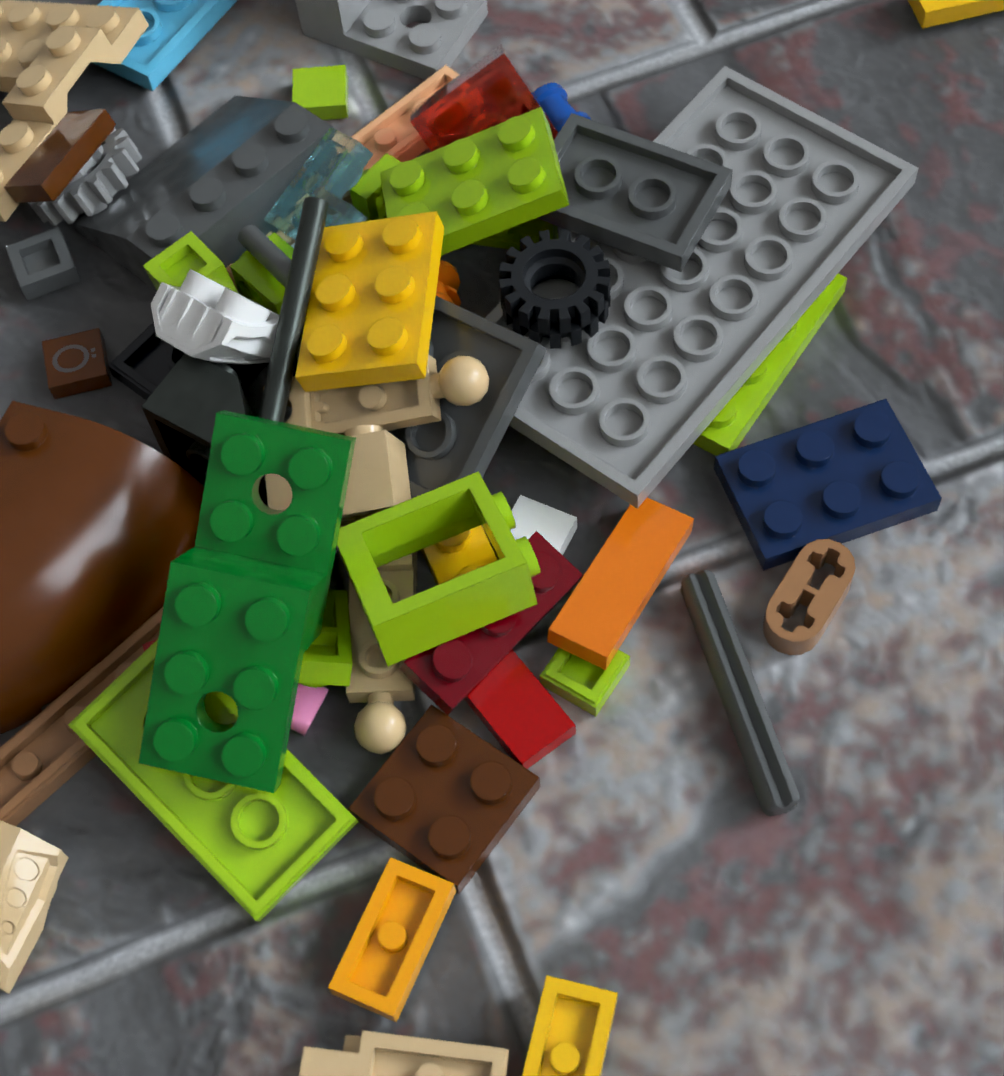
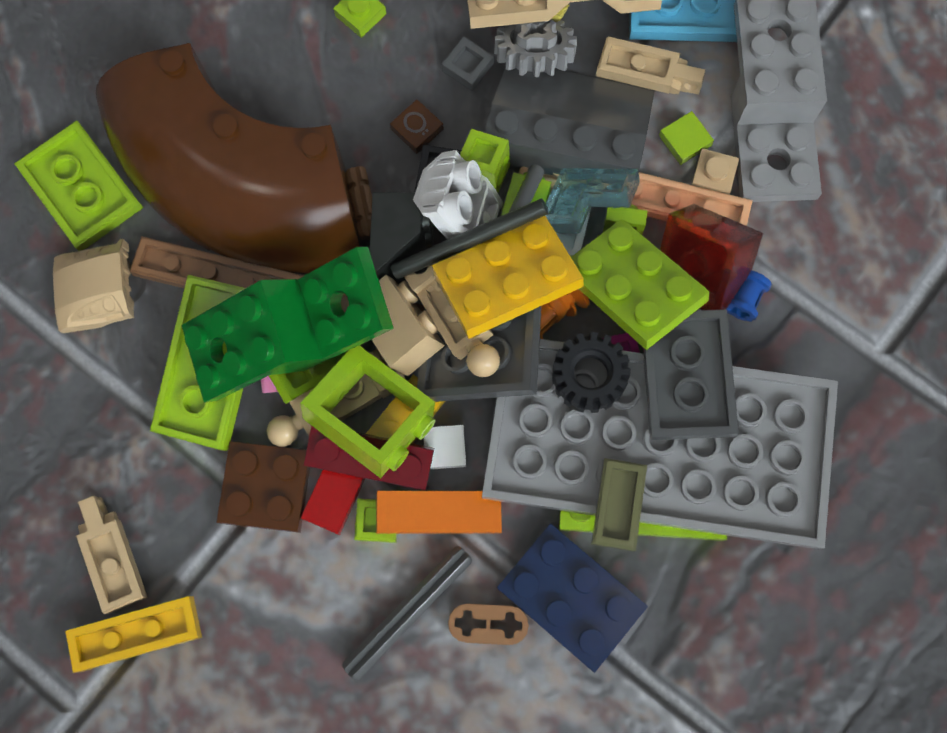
camera: 60 degrees right, 15 degrees up
(60, 156) = (525, 29): reddish brown tile -> none
(204, 85) = (648, 67): none -> tan hinge
(381, 84) = (715, 171): none -> tan plate
(392, 939) = (173, 505): light orange plate -> none
(744, 342) = (619, 505): none -> olive tile

